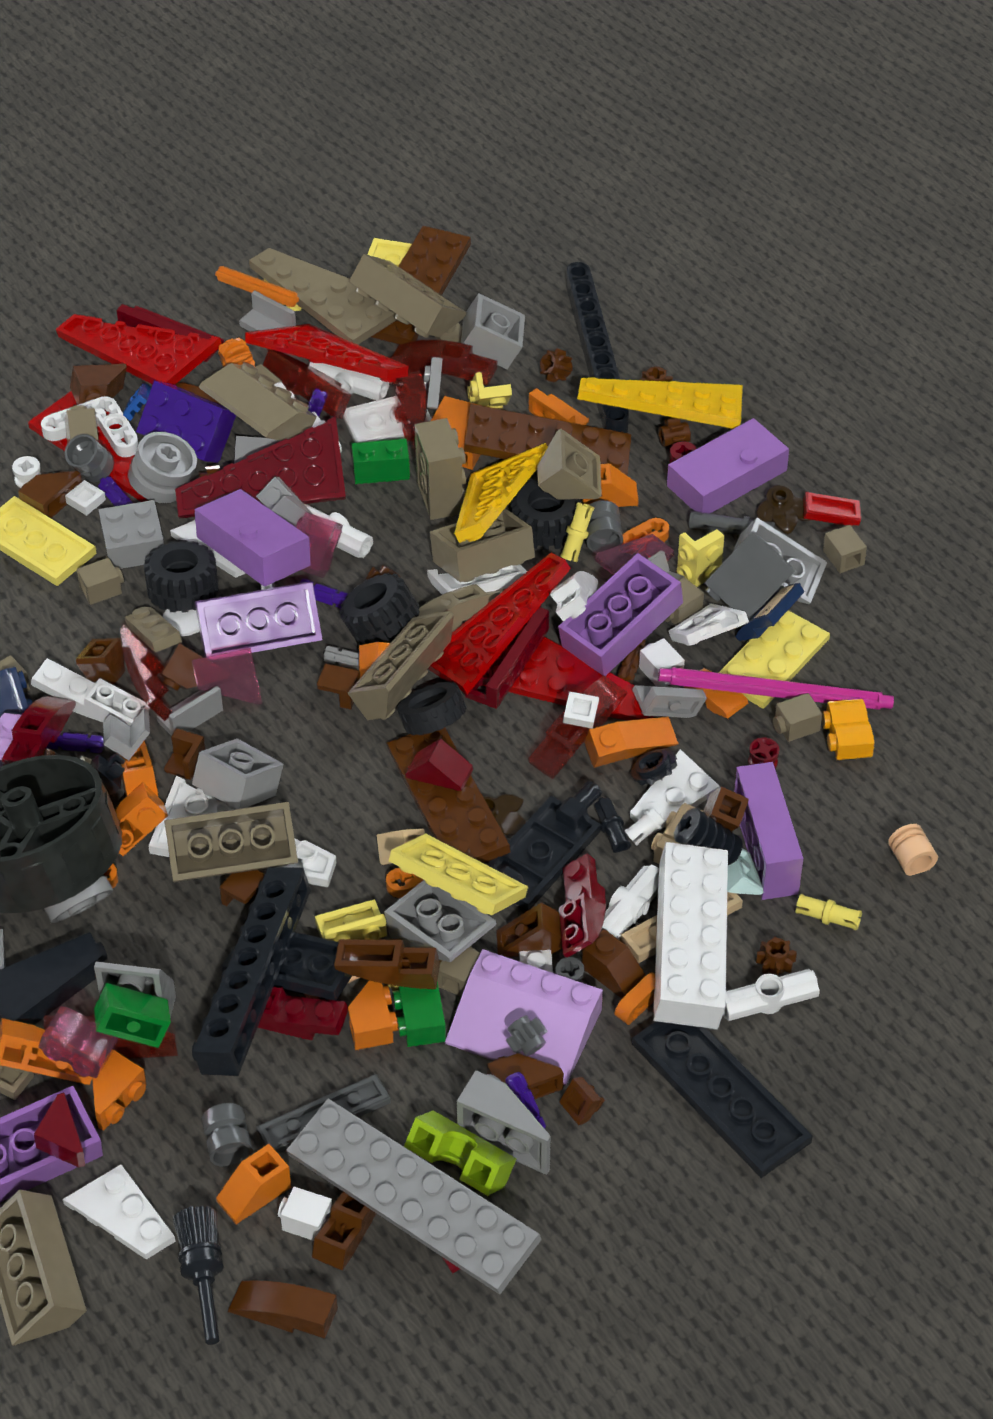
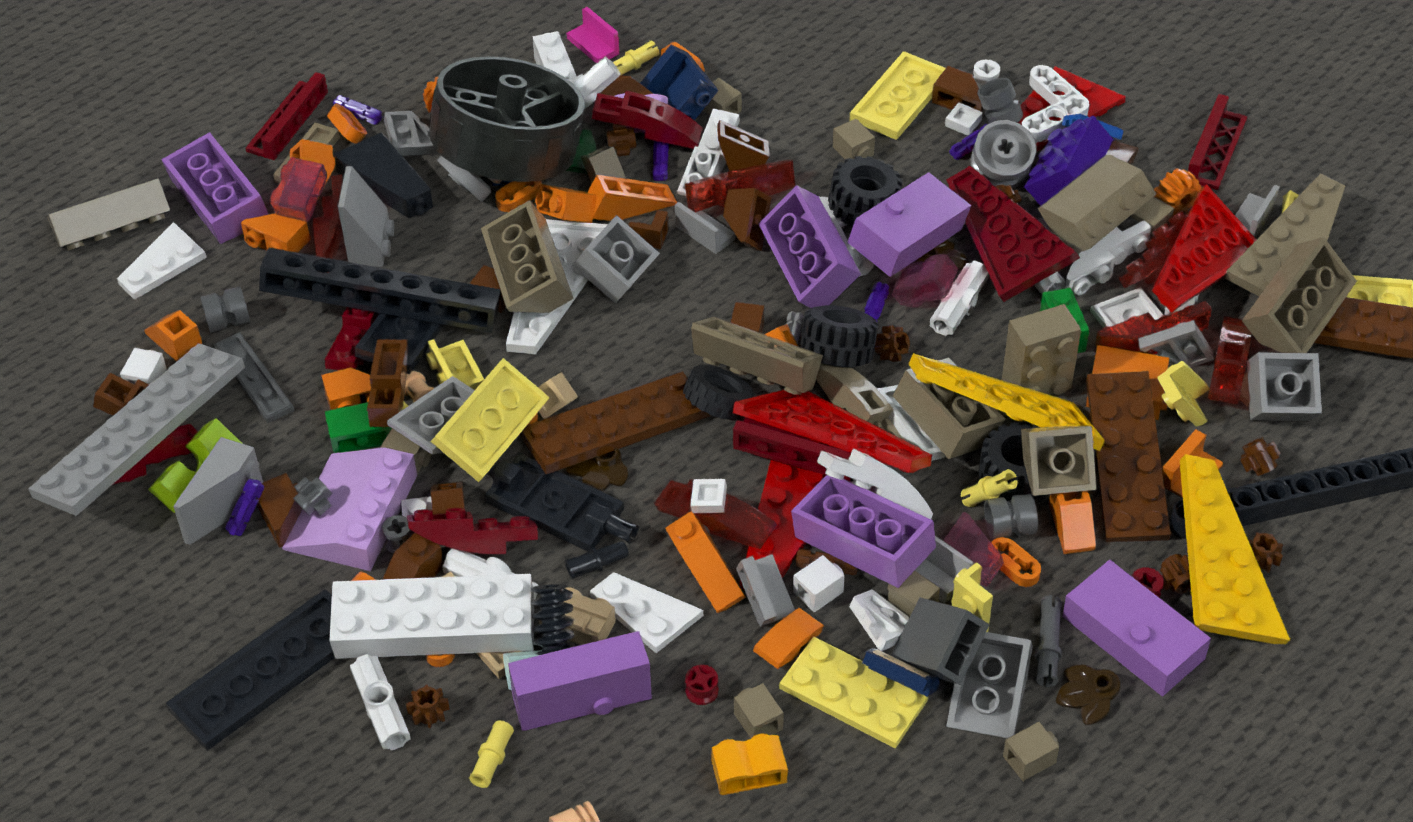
camera: 85 degrees right, 0 degrees up
(59, 1135) = (206, 191): dark red slope -> none
(80, 421) = (1034, 88): dark tan brick -> none
(97, 381) = (1110, 97): reddish brown slope -> none
(109, 771) = (599, 165): black tile -> none
(125, 738) = (650, 174): light grey panel -> none
(130, 533) = (916, 151): light grey brick -> none
(132, 1015) = (318, 212): green brick -> none
(146, 350) = (1170, 121): red wing -> none
(152, 629) = (782, 181): dark tan plate -> none
(200, 1259) = (101, 309): black piece -> none
(231, 672) = (738, 240): clear pink wing -> none
(251, 283) = (1288, 189): orange axle -> none
(282, 501) = (965, 247): light grey slope -> none
(285, 1306) = (53, 371): reddish brown slope -> none
(317, 401) = (1122, 255): dark purple axle -> none
(440, 766) = (633, 403): dark red slope -> none
(581, 1100) = (256, 555): reddish brown tile -> none
(645, 826) = (590, 582): white pin -> none
(654, 766) = (671, 585): black gear -> none
(726, 807) = (584, 625): reddish brown brick -> none
(770, 687) = (791, 690): dark pink piece -> none
(831, 509) = (1099, 739): red tile -> none

